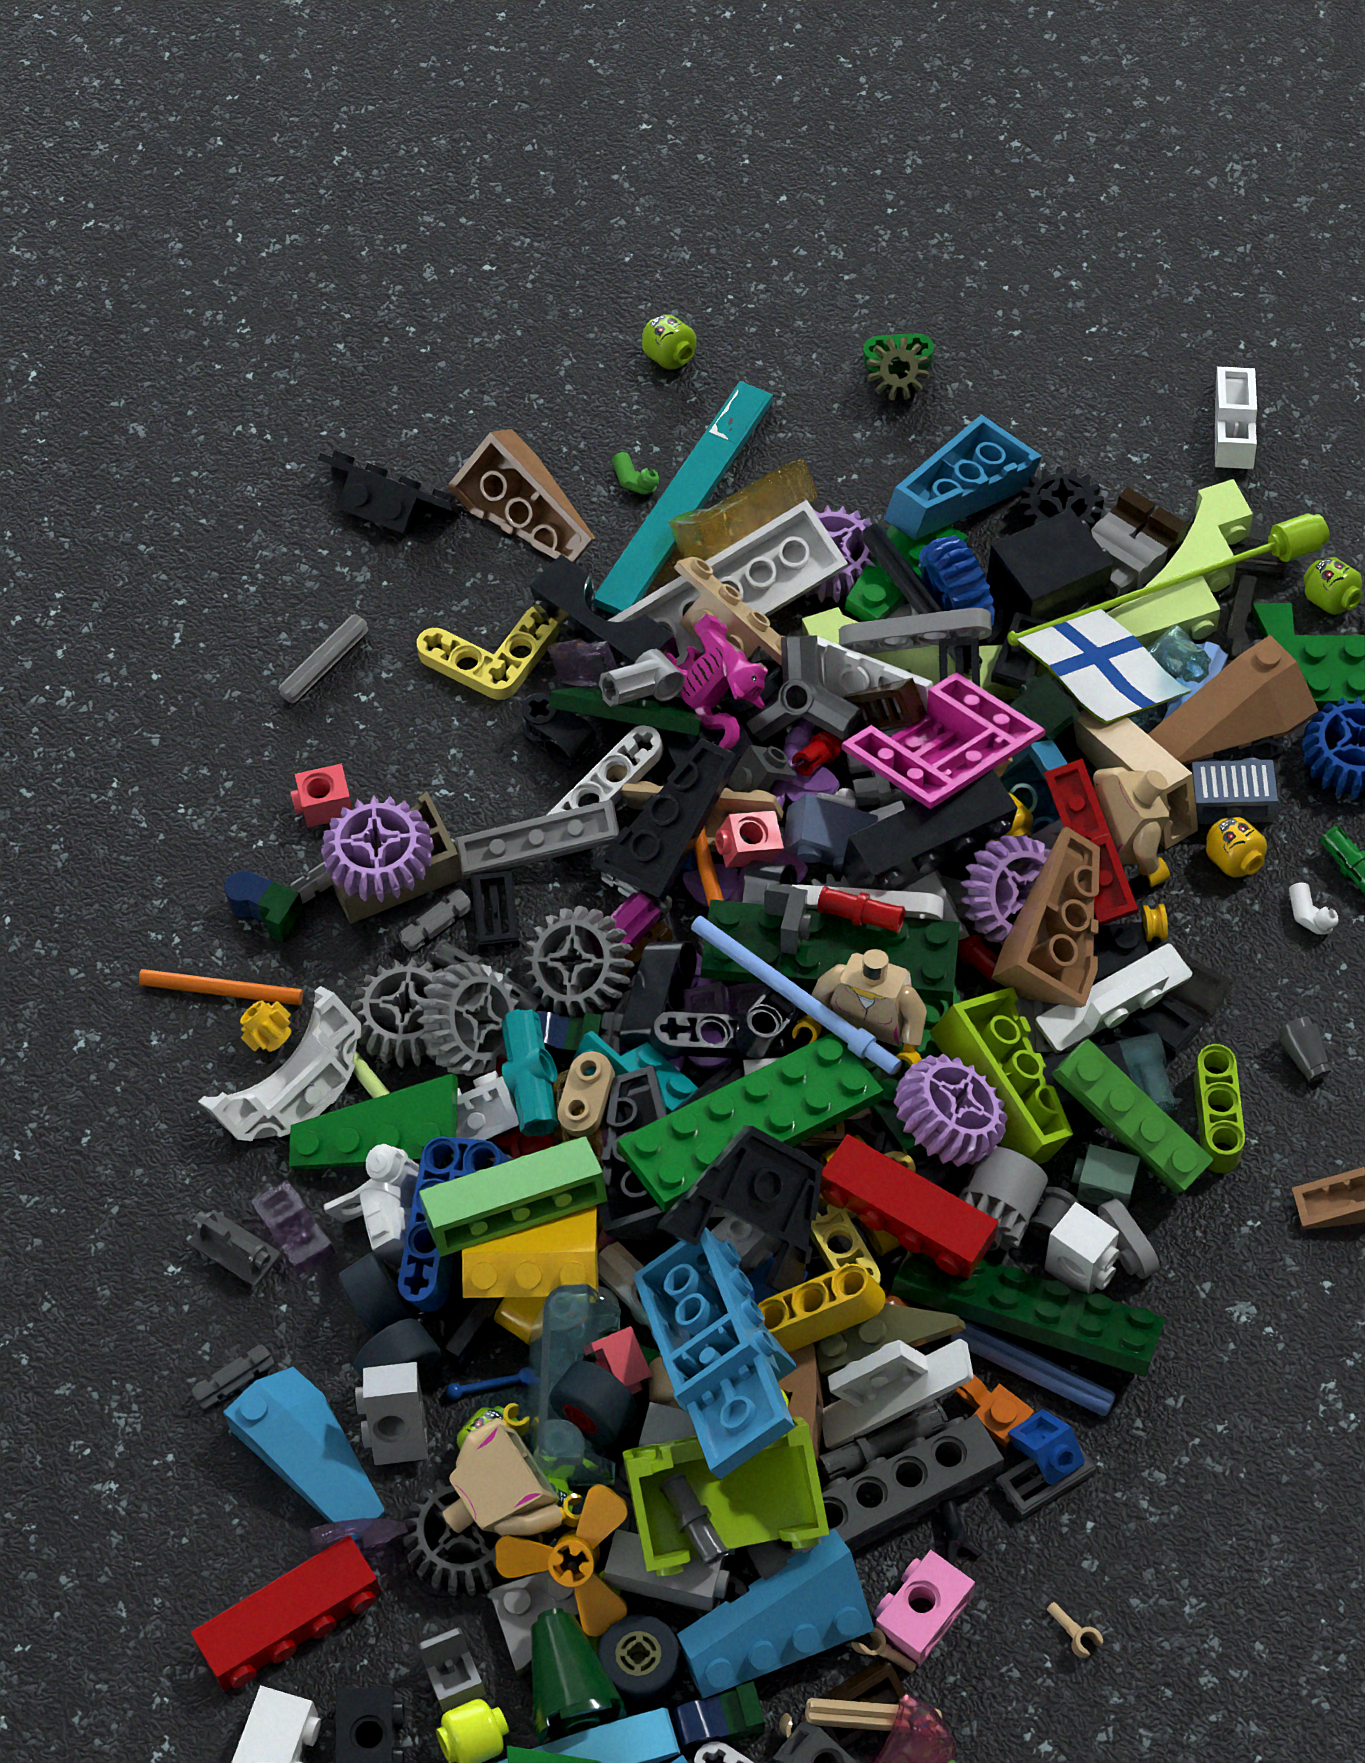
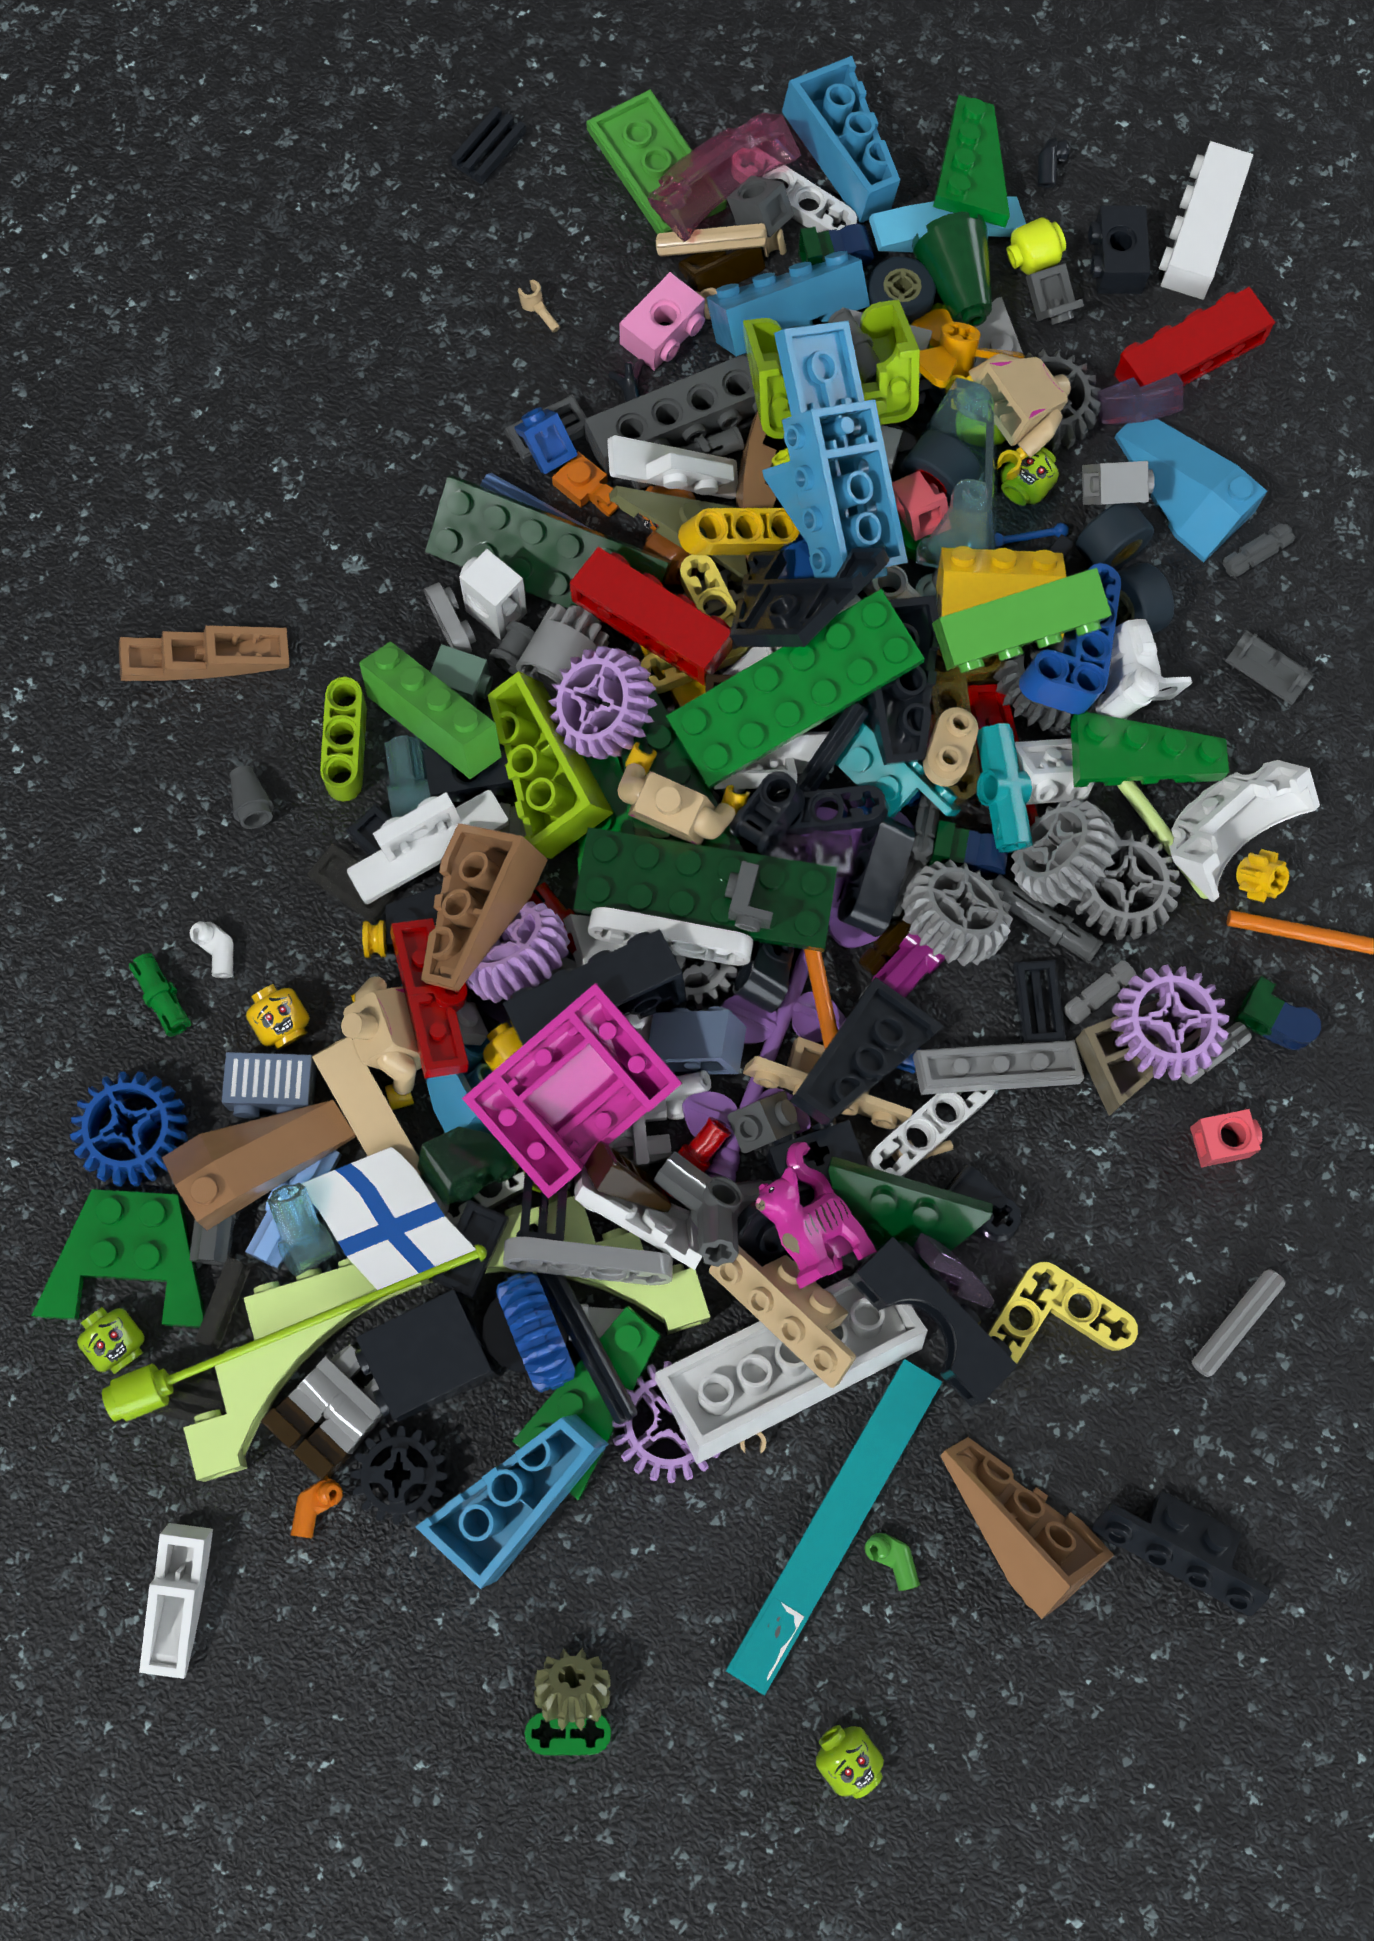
camera: 175 degrees right, 15 degrees up
(292, 1227) = (1216, 686): clear purple slope -> none
(649, 675) = (884, 1215): light grey piece -> none
(711, 530) = (763, 1472): clear yellow beam -> none
(759, 827) = (768, 1018): coral brick -> none
(859, 1041) = (686, 763): light blue bar -> none
(861, 909) = (673, 906): red pin -> none
(1137, 480) = (313, 1502): none -> orange arm

